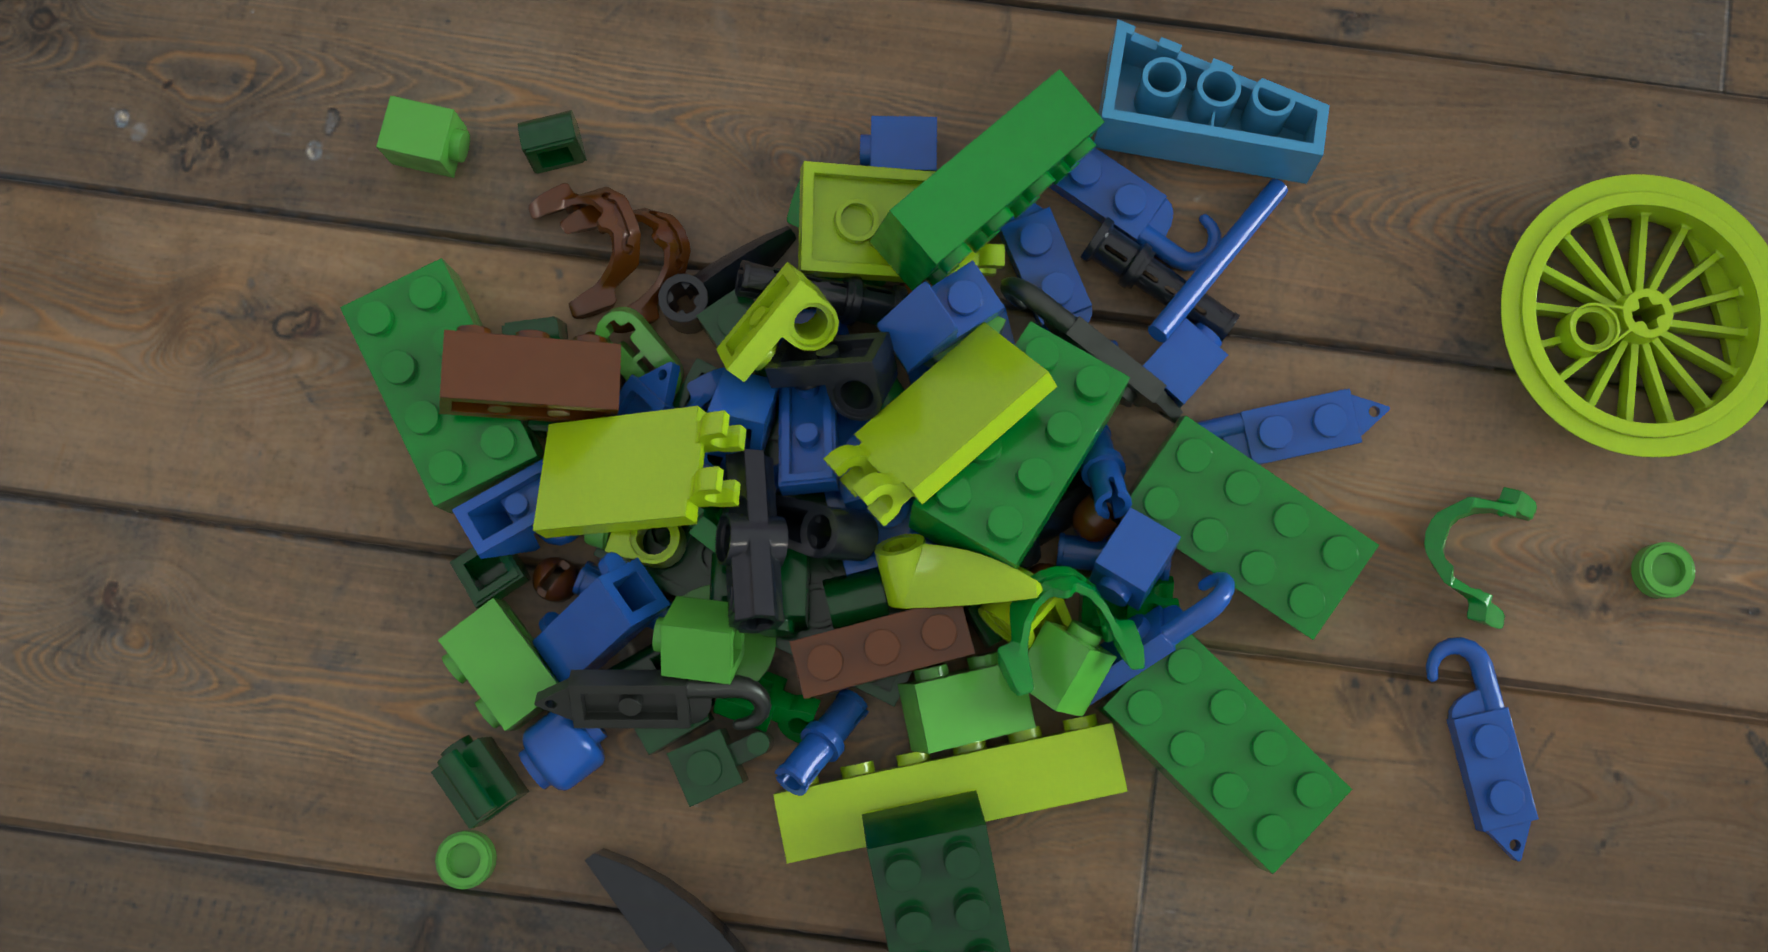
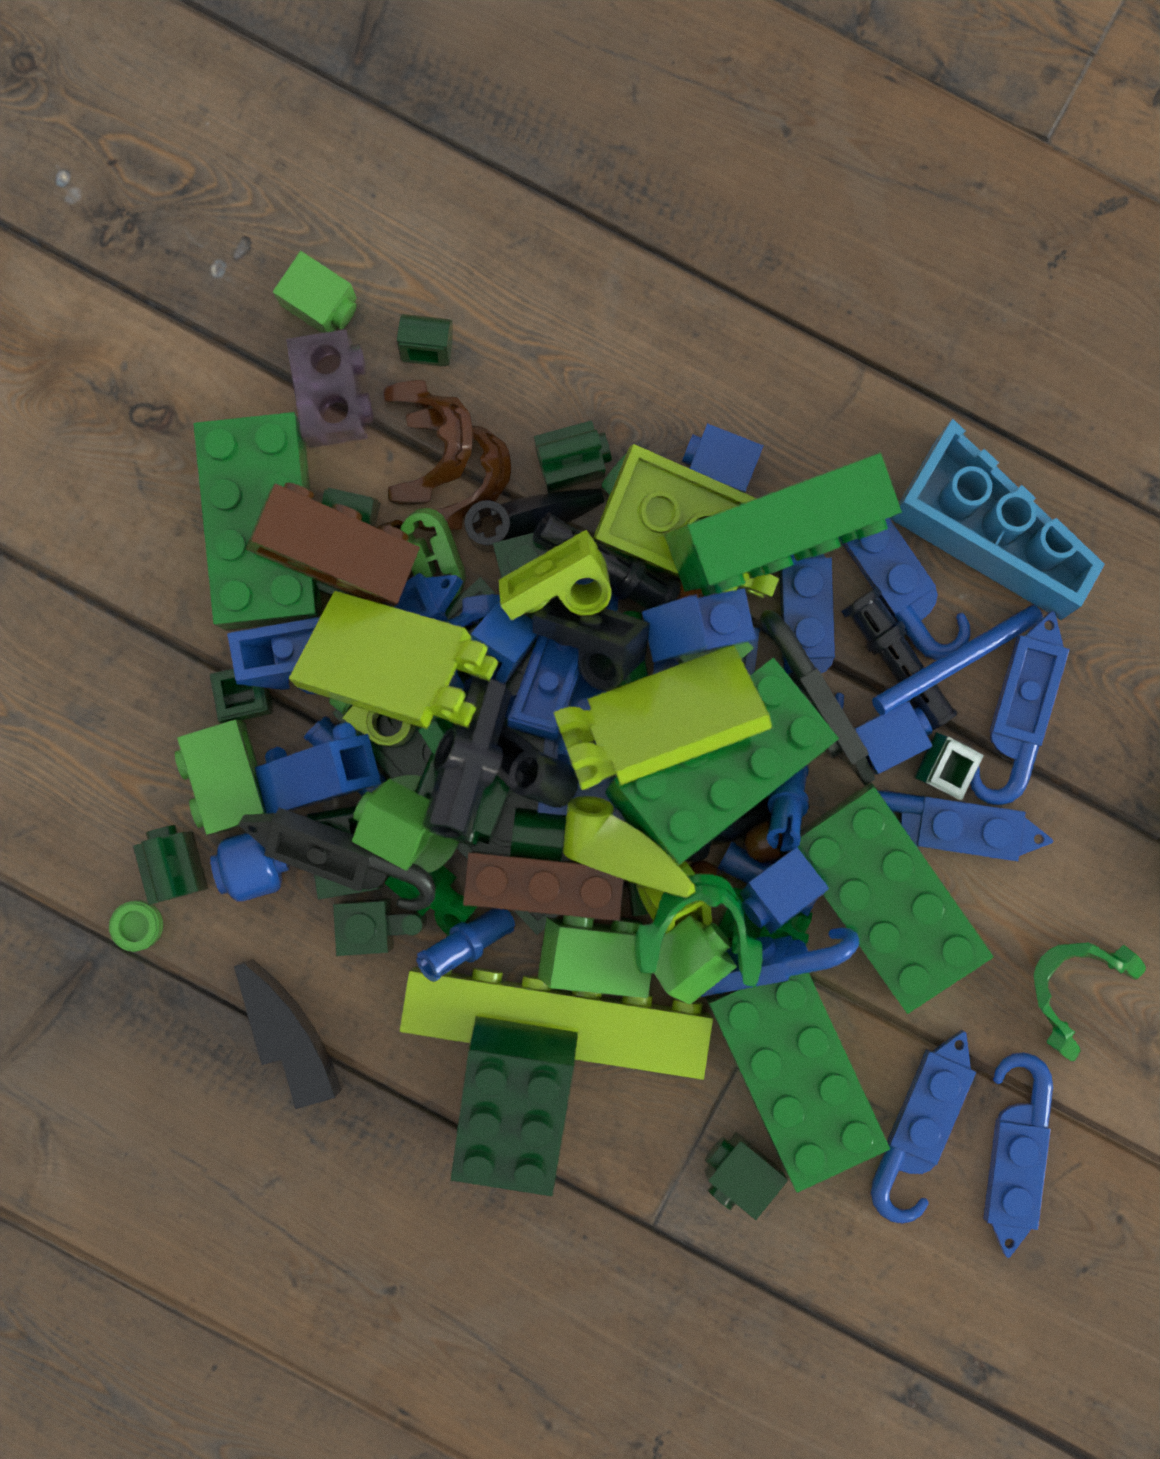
camera: 15 degrees right, 5 degrees up
(462, 230) = (318, 391): none -> clear purple brick
(562, 587) = (297, 729): reddish brown hinge -> none
(745, 201) = (572, 456): none -> dark green brick
(1208, 880) = (742, 1176): none -> dark green brick
(1252, 372) = (948, 766): none -> dark green brick
(1305, 284) = (1025, 707): none -> blue plate
(1374, 752) = (924, 1123): none -> blue plate

